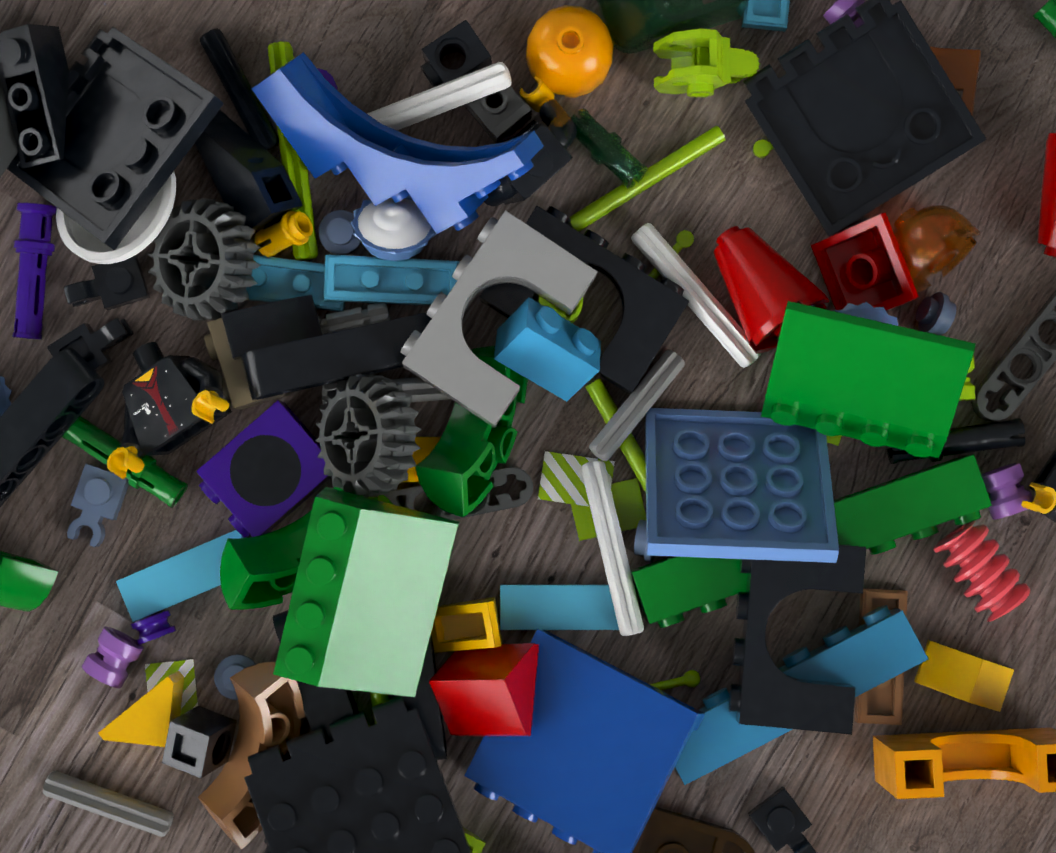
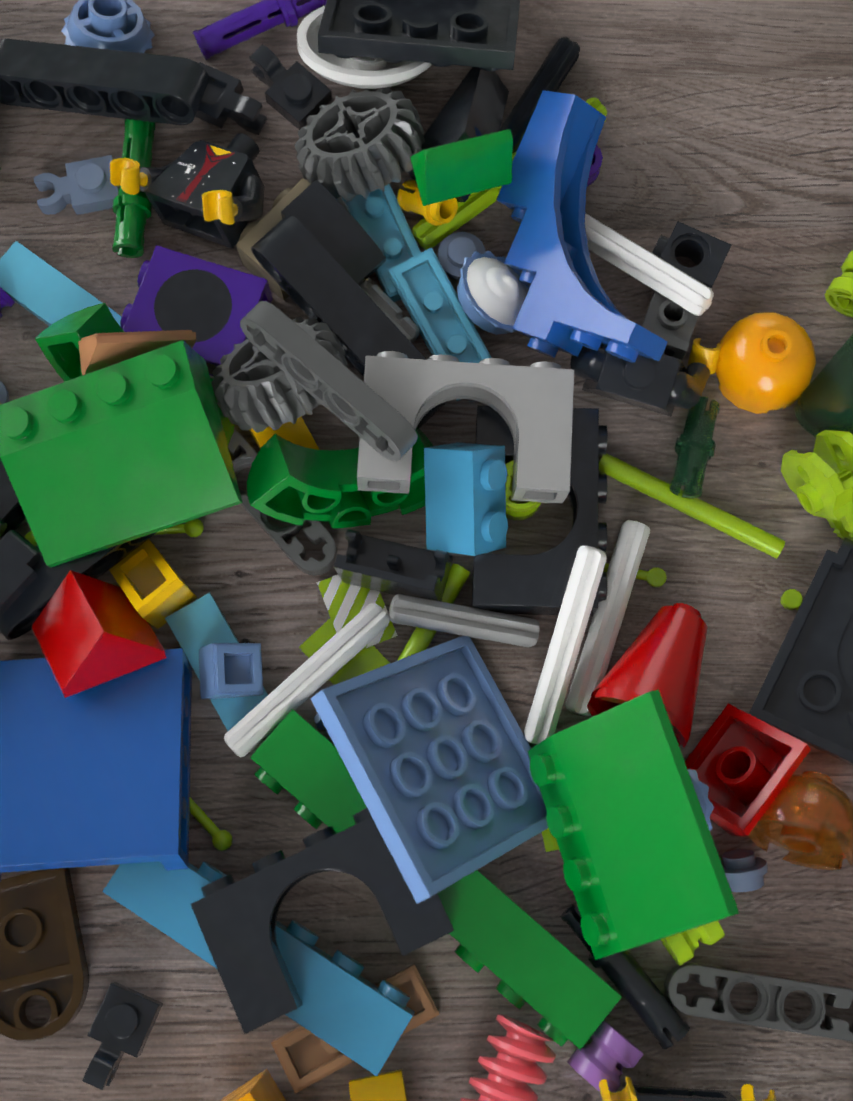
camera: 60 degrees right, 10 degrees down
(282, 192) = (463, 167): none -> green slope
(287, 538) = (111, 348): none -> nougat slope
(413, 404) = (329, 381): none -> dark grey beam
(564, 433) = (393, 567): none -> black hinge
(572, 602) = (230, 670): none -> medium blue slope
(702, 342) = (565, 643): none -> white axle

